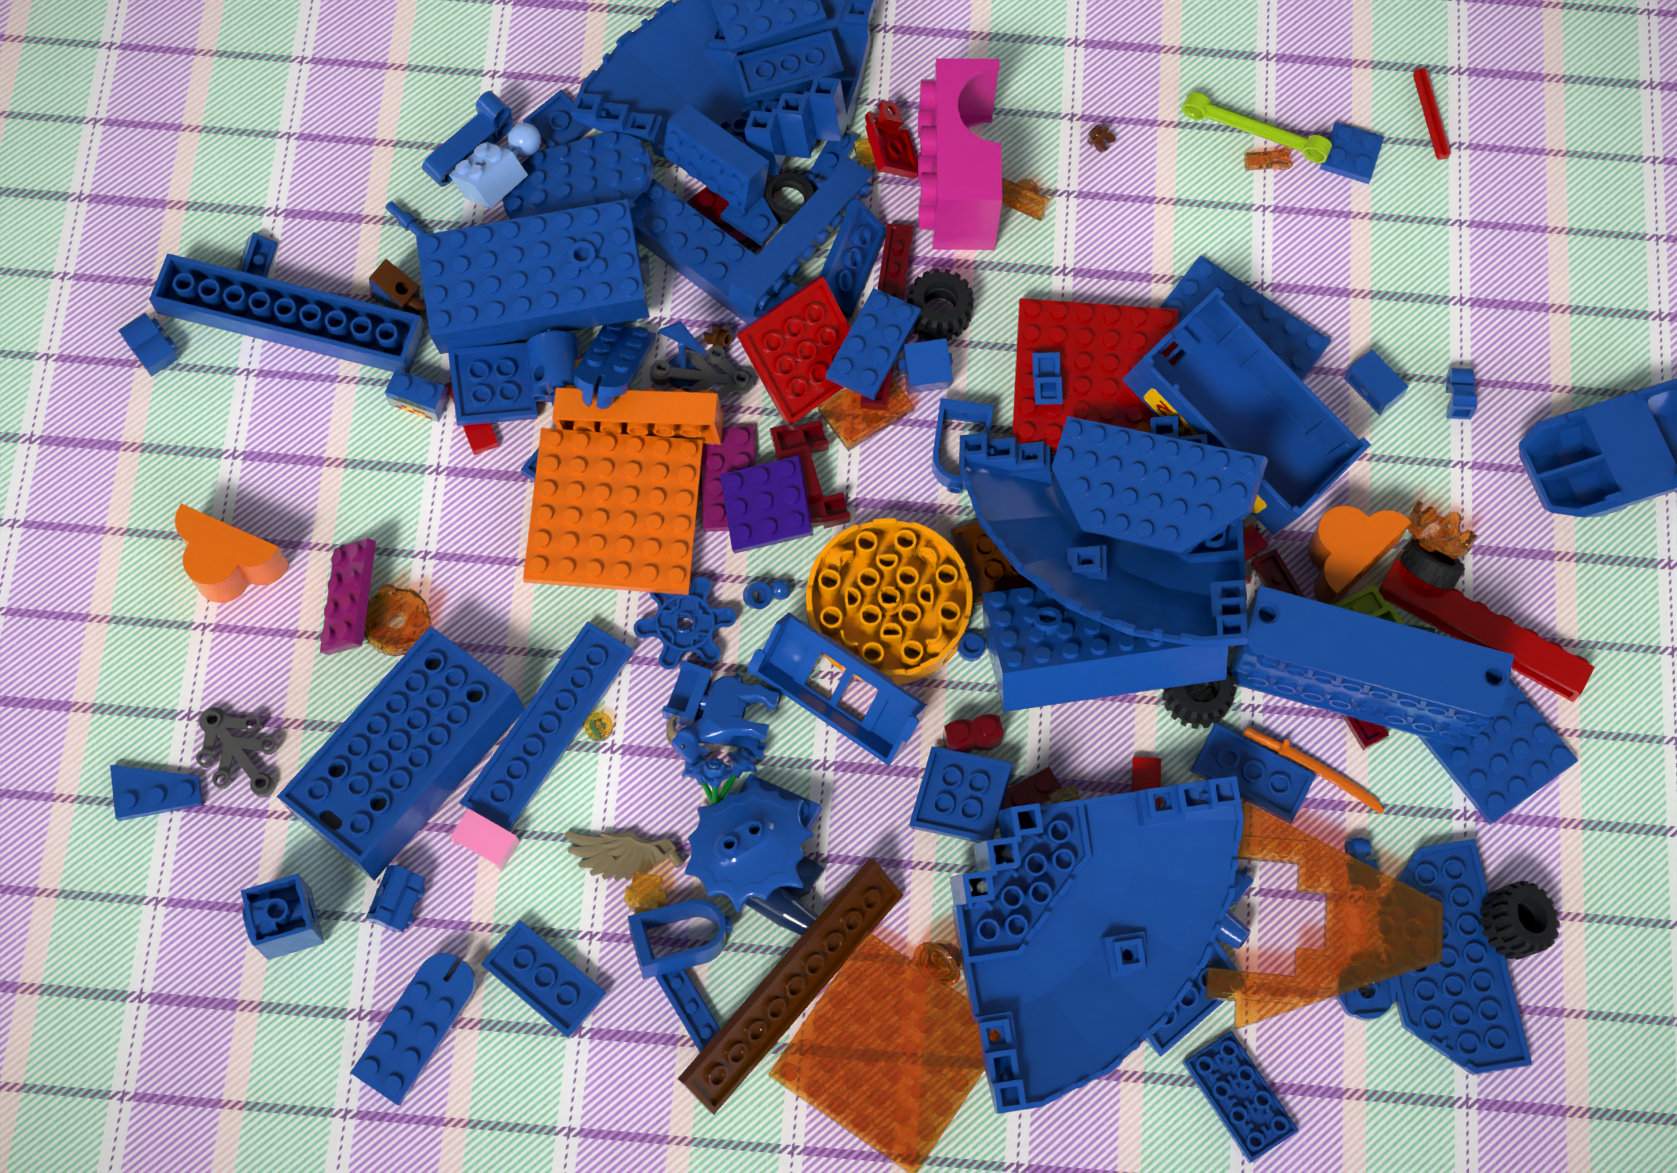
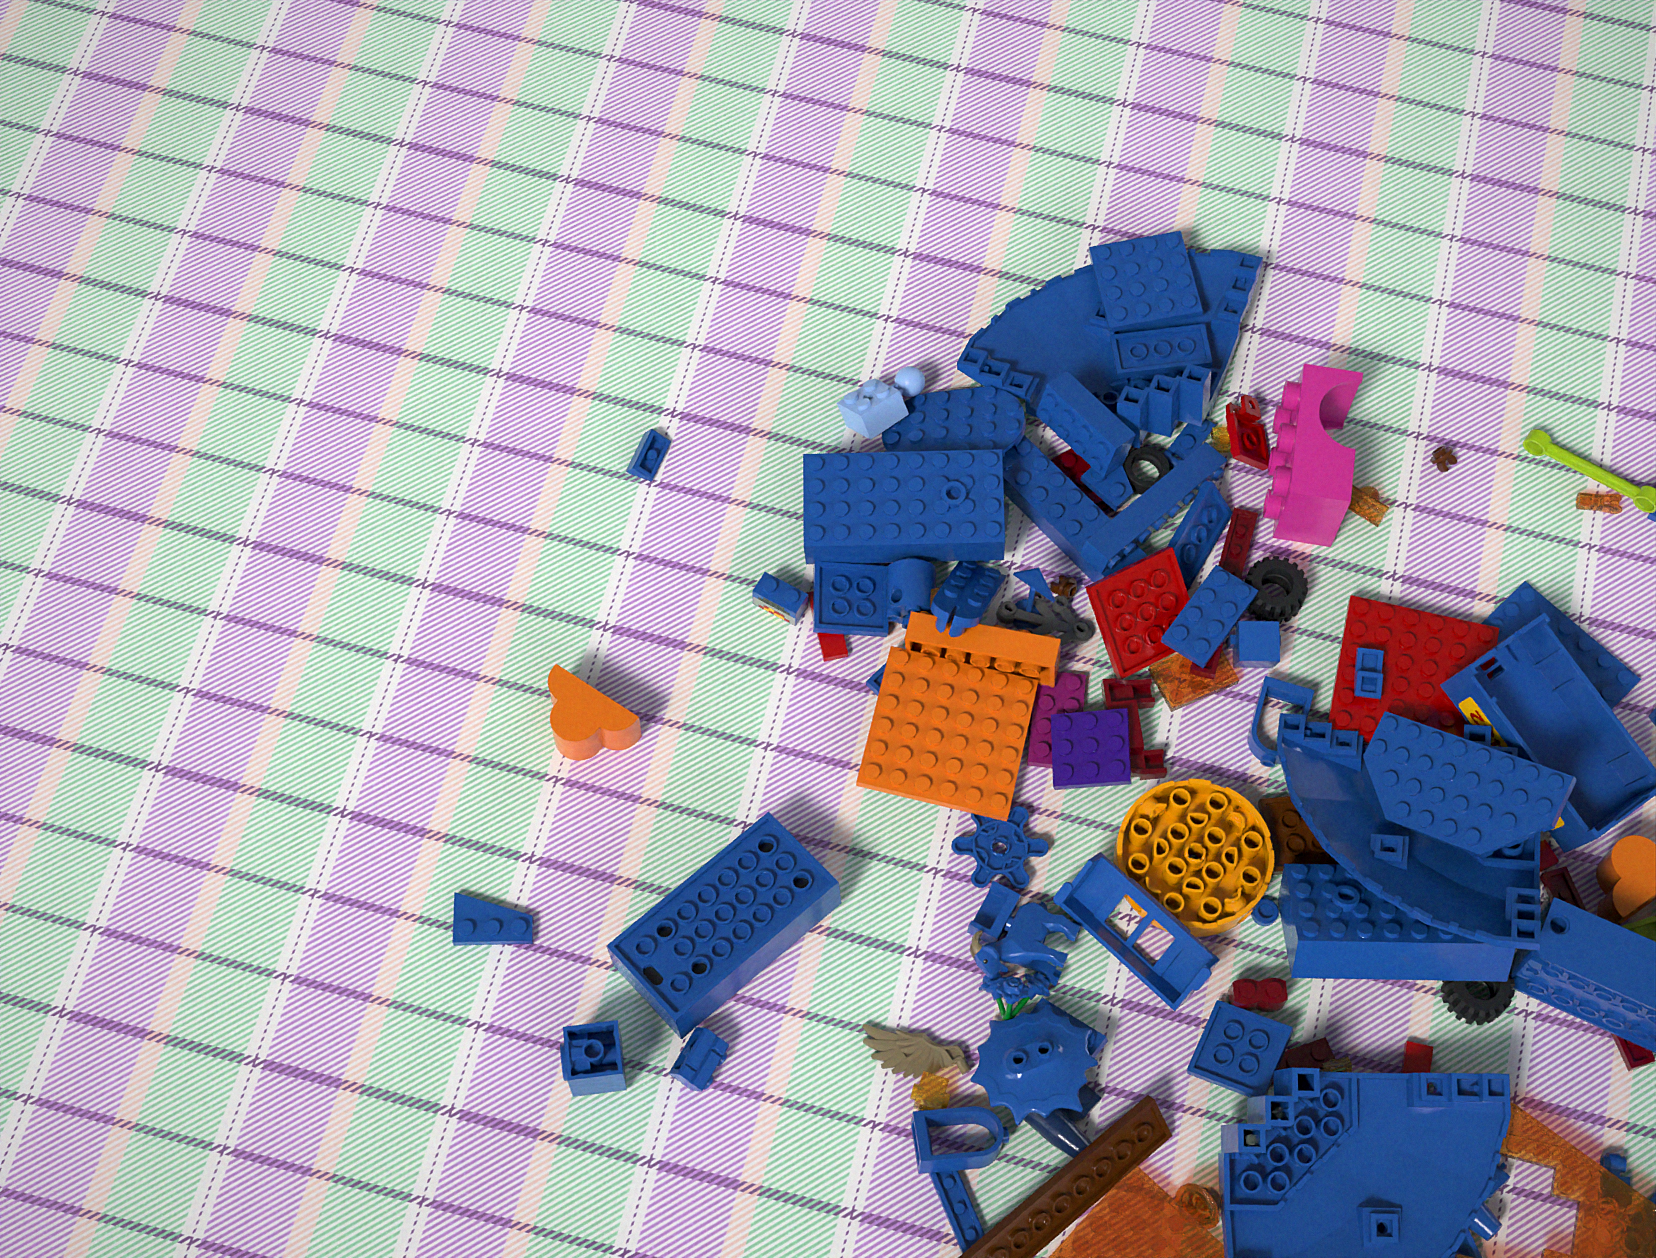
camera: 10 degrees right, 5 degrees down
(148, 343) = (543, 514): blue brick -> none
(234, 748) = (568, 895): dark grey plant -> none
(287, 314) = (673, 507): blue brick -> none
(347, 597) = (693, 773): magenta plate -> none
(393, 603) = (727, 786): clear orange plate -> none
(396, 289) = (774, 501): reddish brown torso -> none
(406, 220) = (790, 438): blue bar -> none
(416, 1027) = (701, 1182): blue plate -> none
(485, 838) = (789, 1017): bright pink panel -> none
(489, 125) = (879, 363): blue beam -> none
(544, 979) = (826, 1158): blue plate -> none
(547, 727) = (858, 923): blue plate -> none
(555, 121) = (941, 369): blue tile -> none
(598, 726) = (906, 930): clear yellow tile -> none
(779, 589) = (1091, 830): blue plate -> none
(1261, 774) = (1533, 1081): blue tile -> none
(1306, 761) = (1553, 1058): orange sword -> none

